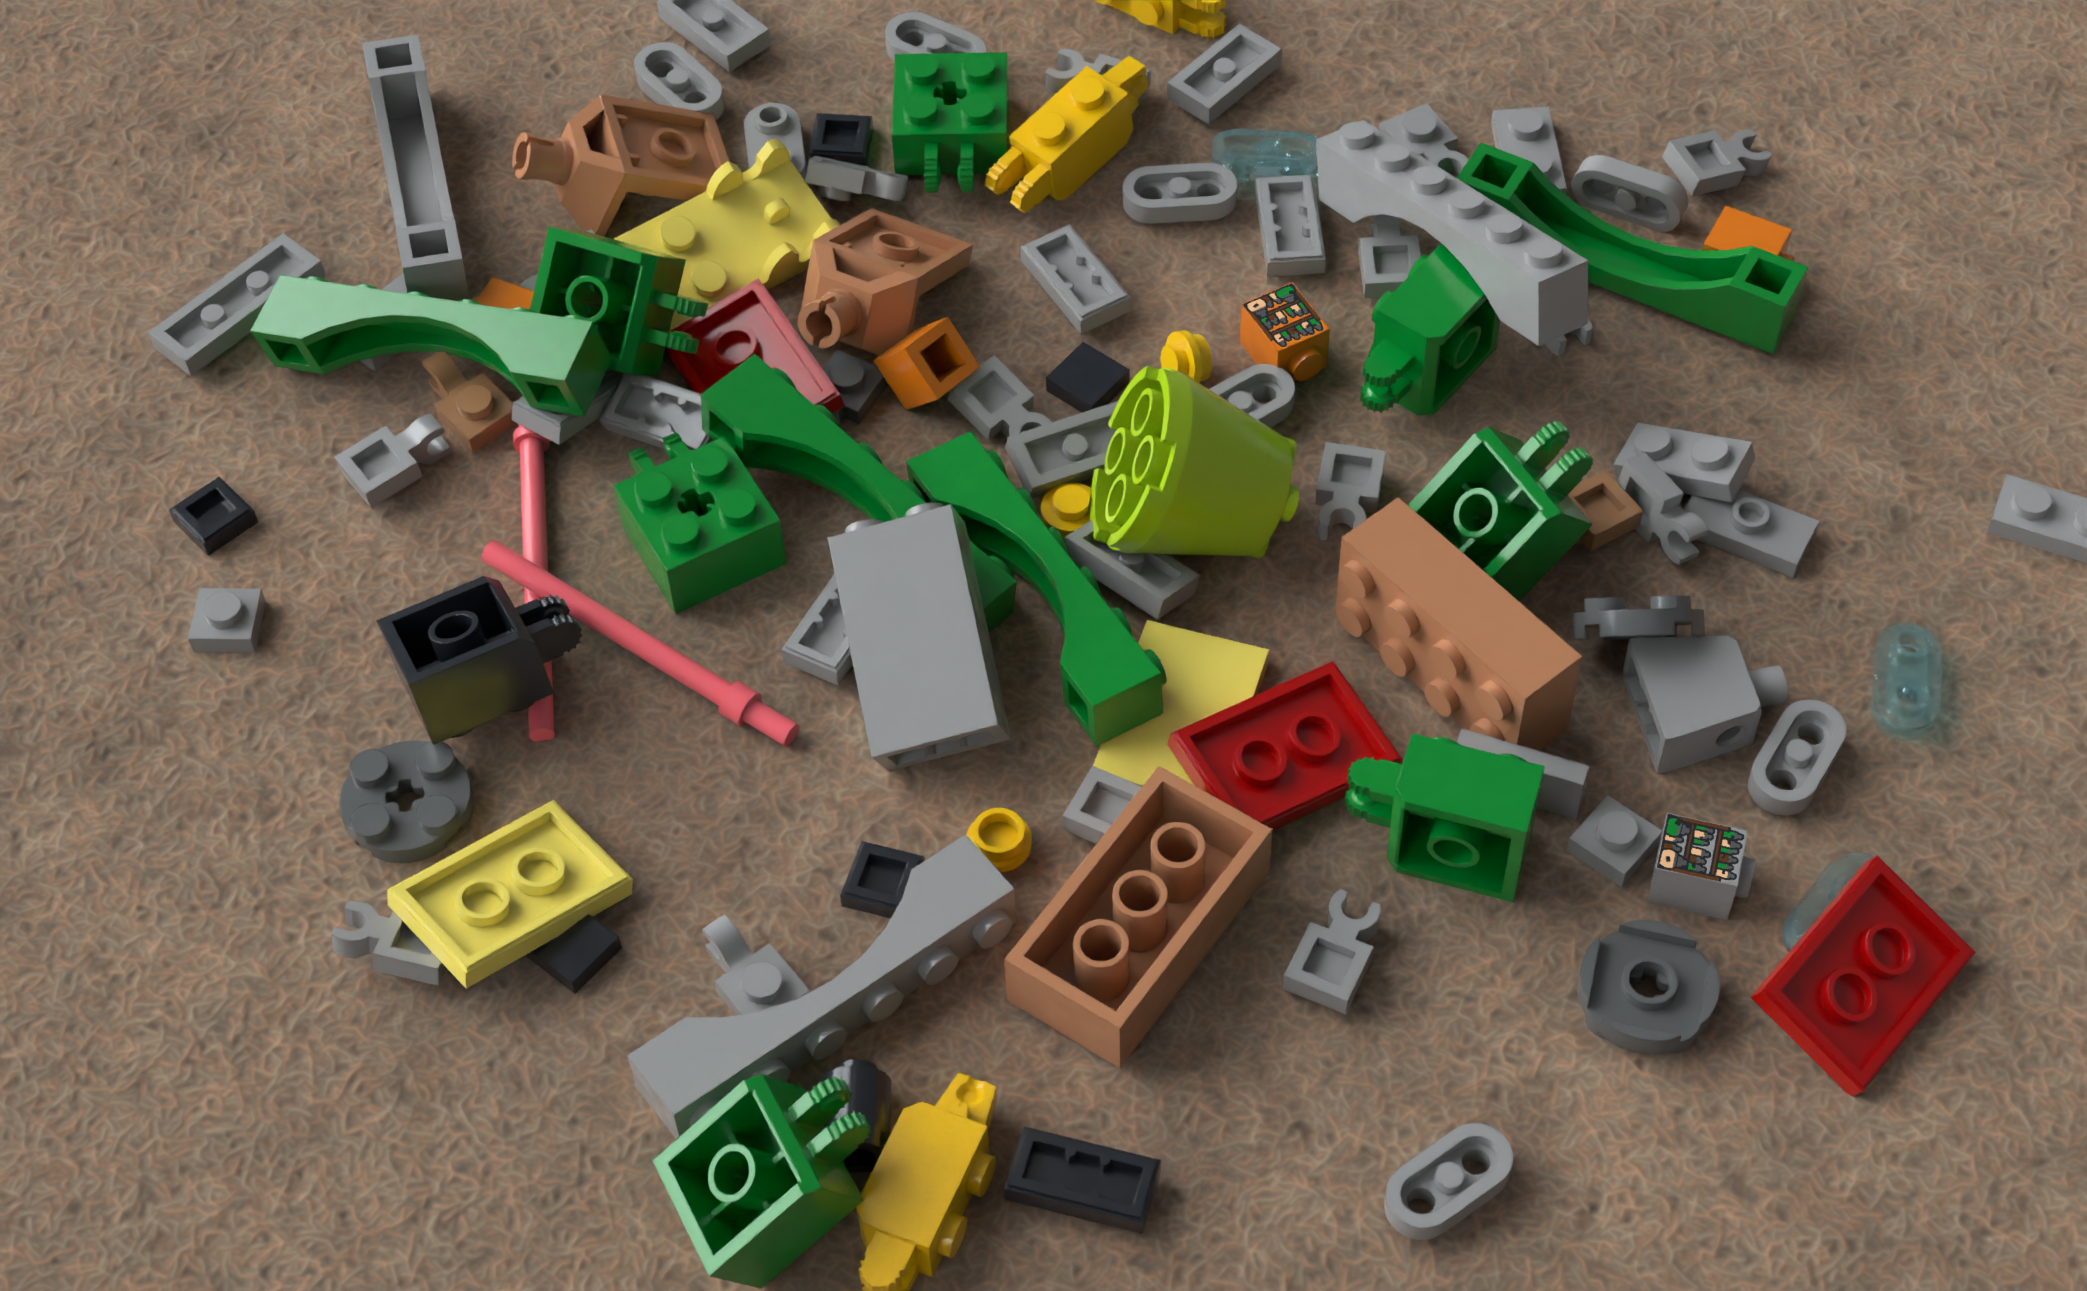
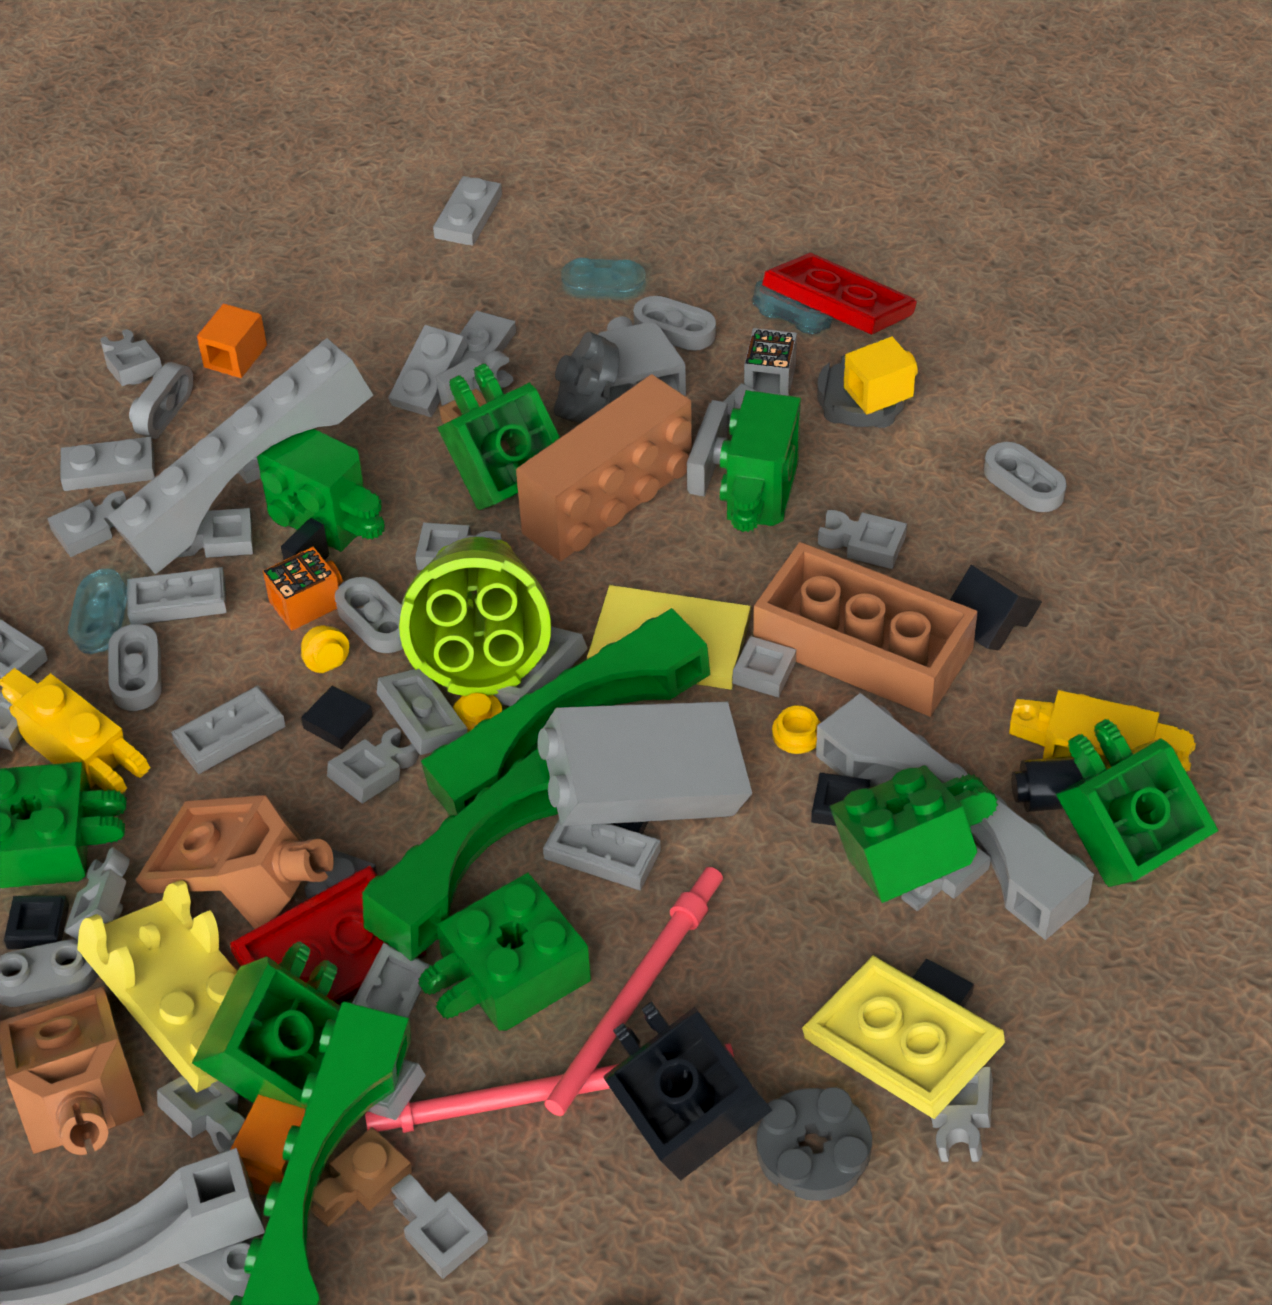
camera: 95 degrees left, 5 degrees down
(771, 904) = (911, 828): none -> green hinge
(927, 363) = (338, 805): orange brick -> none
(1083, 1179) = (1068, 655): black plate -> none
(1182, 1090) = (998, 604): none -> black piece
(1283, 747) = (700, 569): red tile -> none
(1349, 334) = (308, 535): none -> black tile
(1634, 981) = (880, 375): none -> yellow brick
(1731, 291) = (274, 340): green arch -> none

